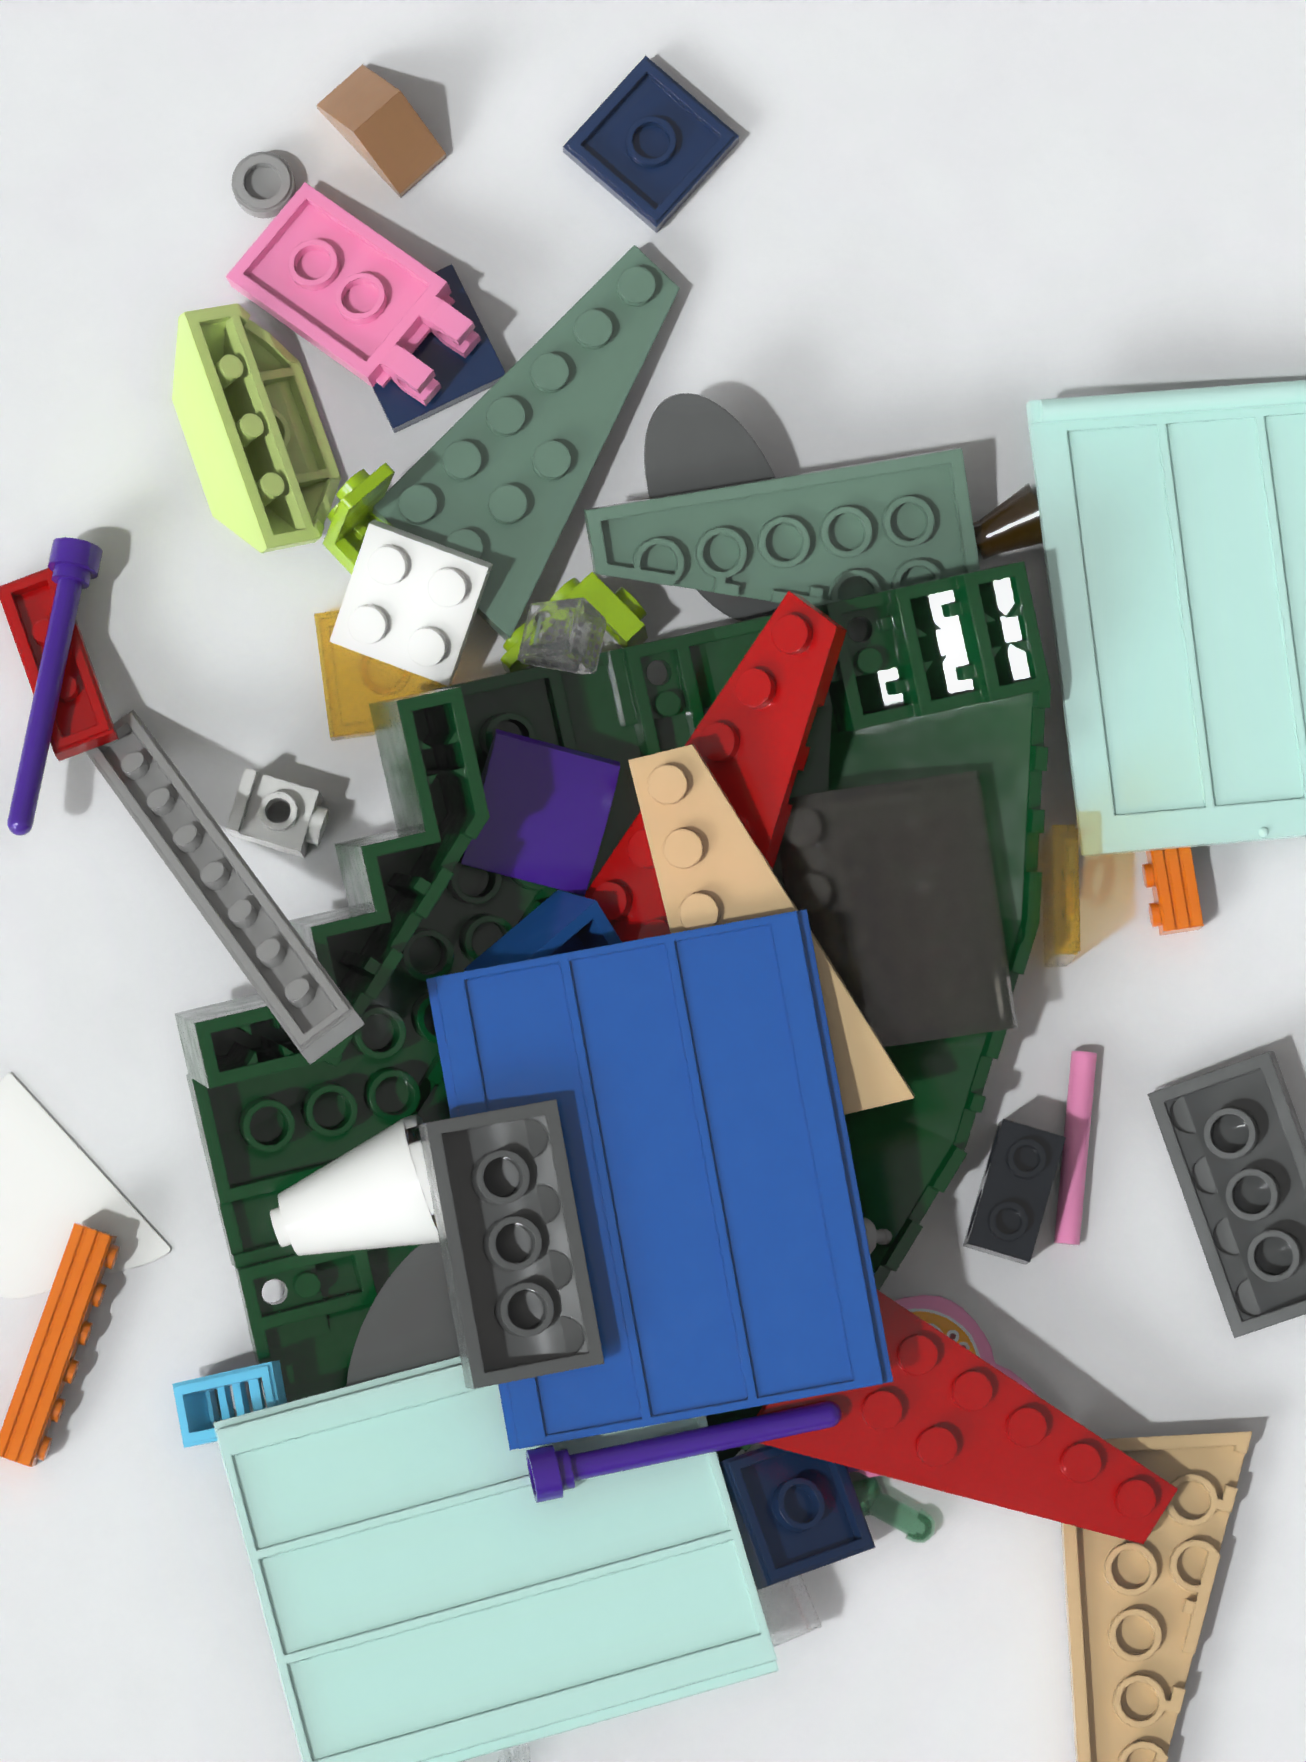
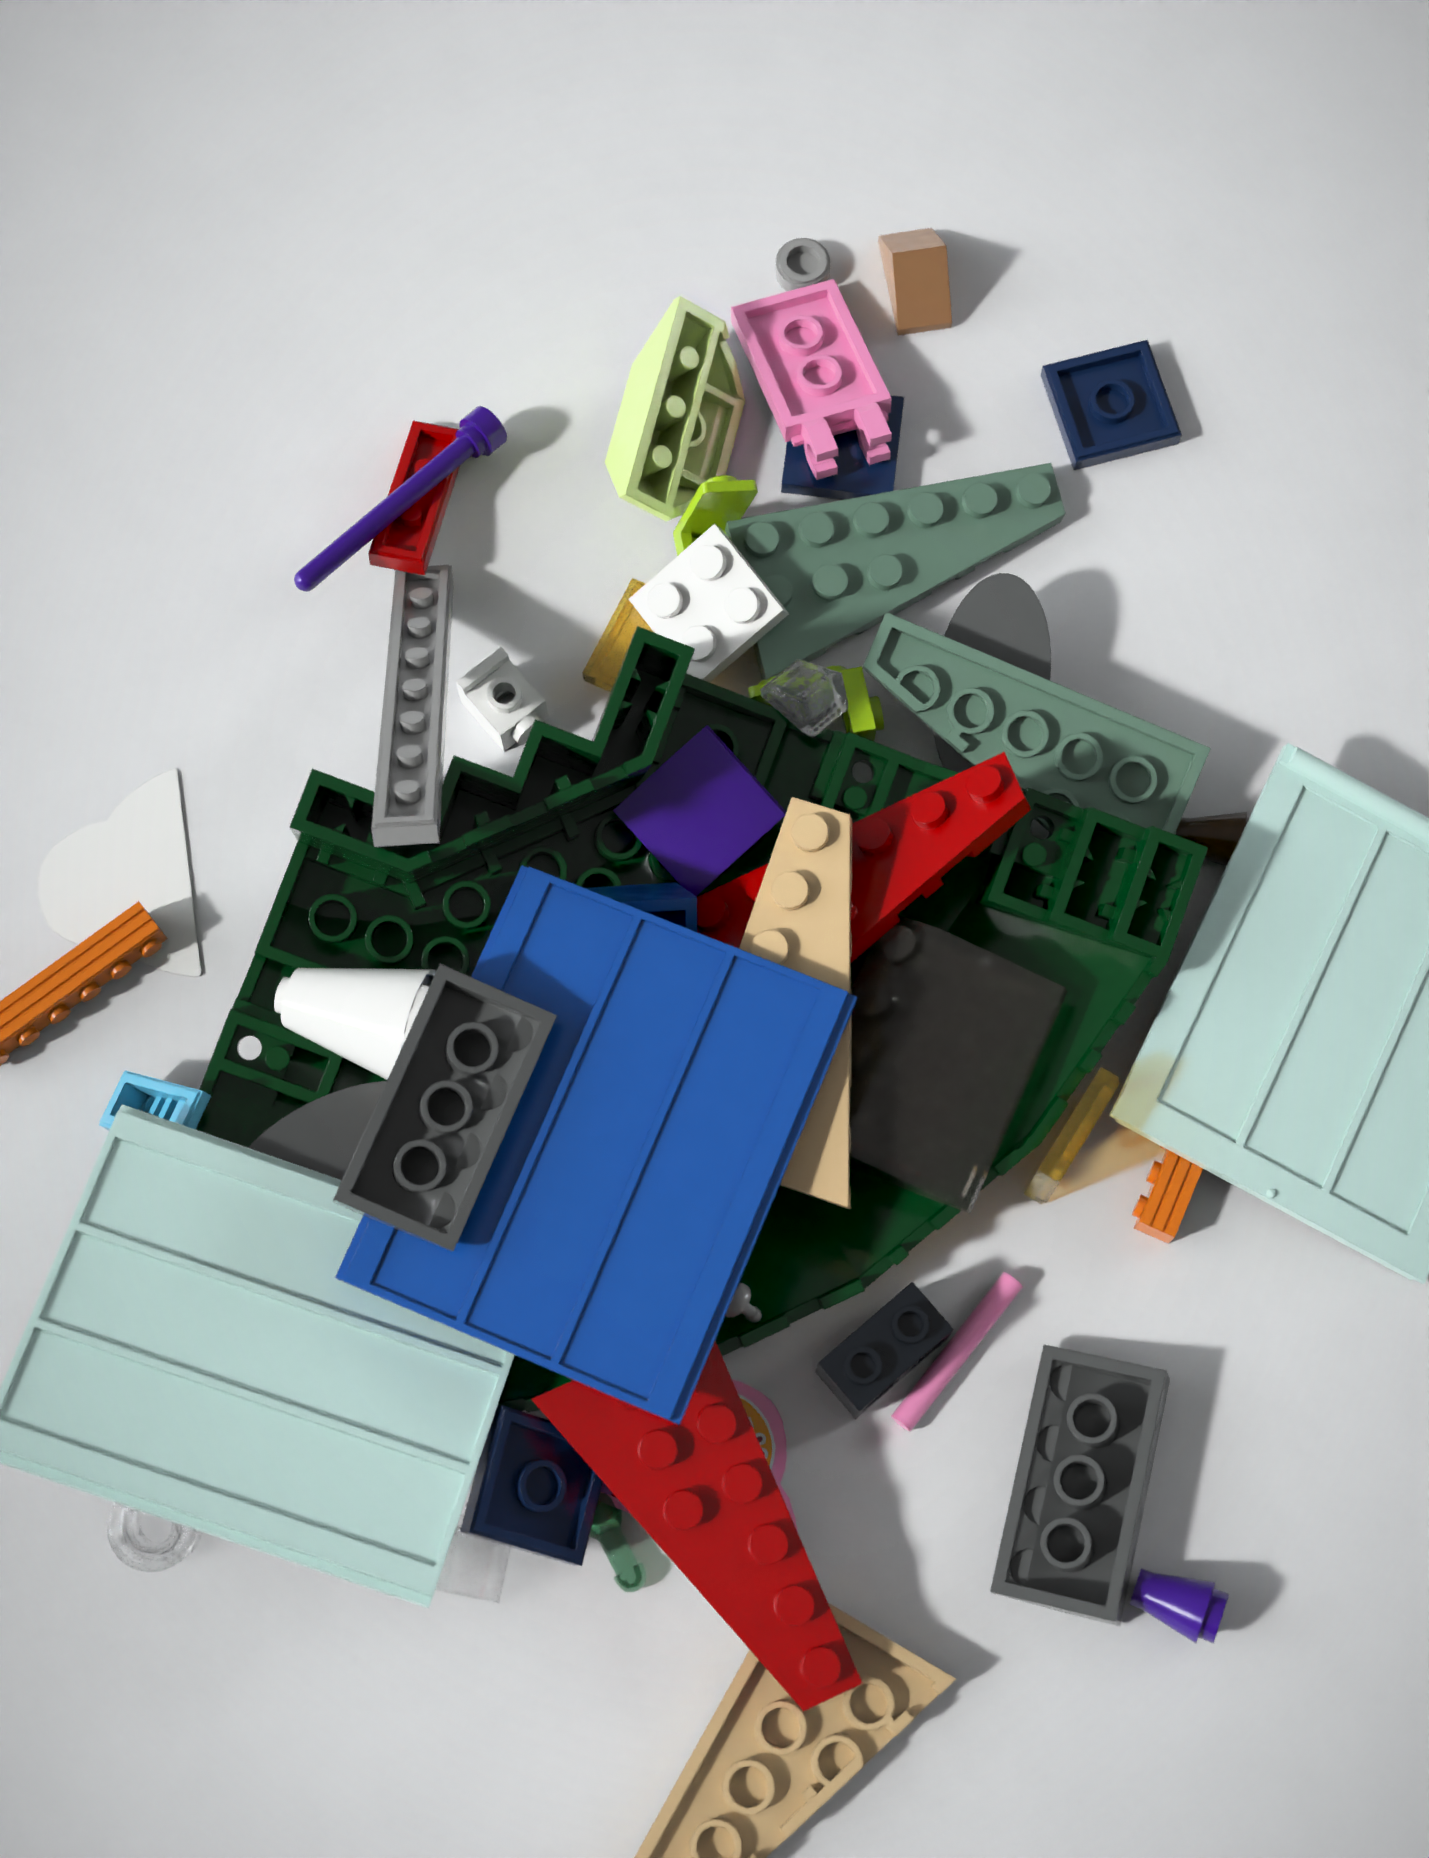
camera: 30 degrees right, 10 degrees down
(557, 1470) = (361, 1319): dark purple piece -> none

